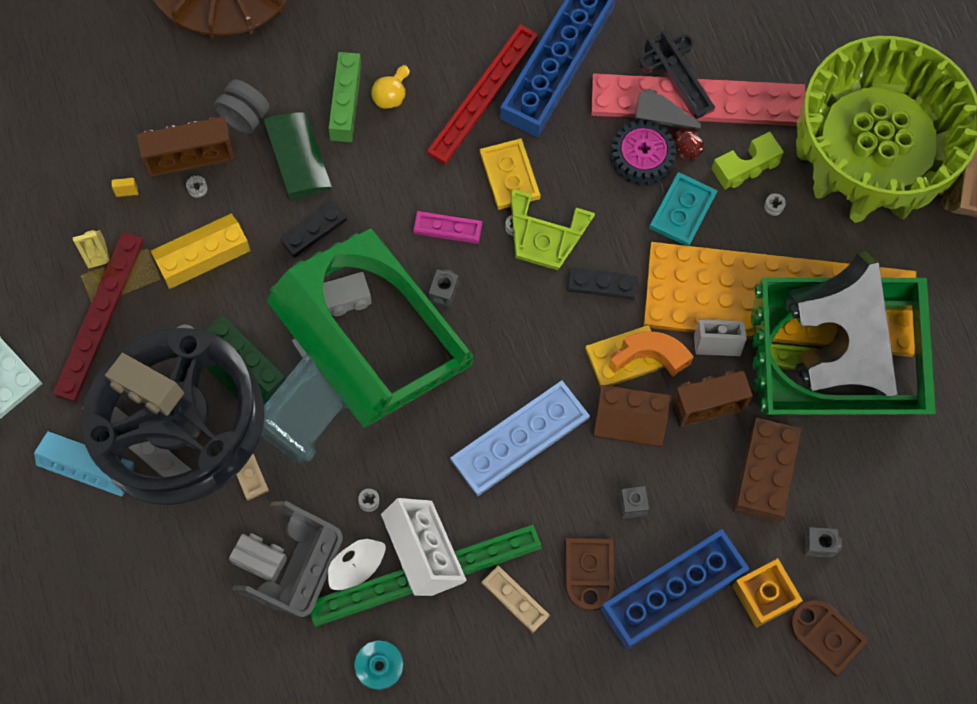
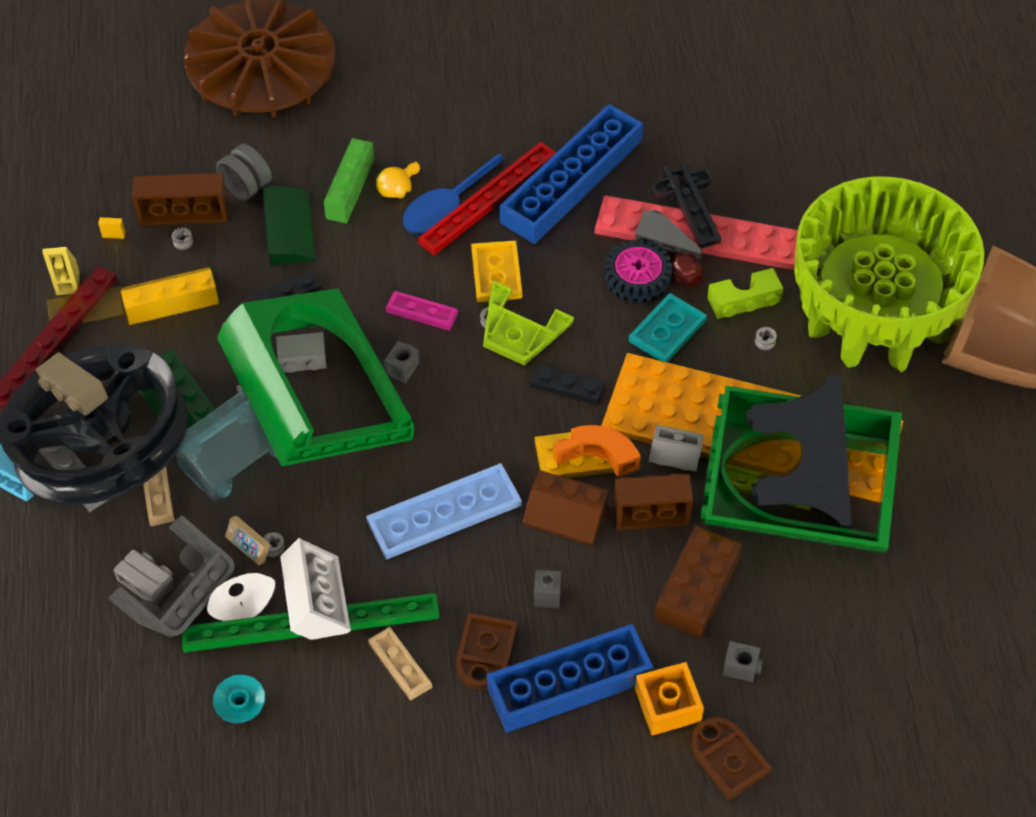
camera: 15 degrees right, 15 degrees down
(345, 502) = (247, 540): none -> tan tile
(436, 108) = (438, 203): none -> blue piece

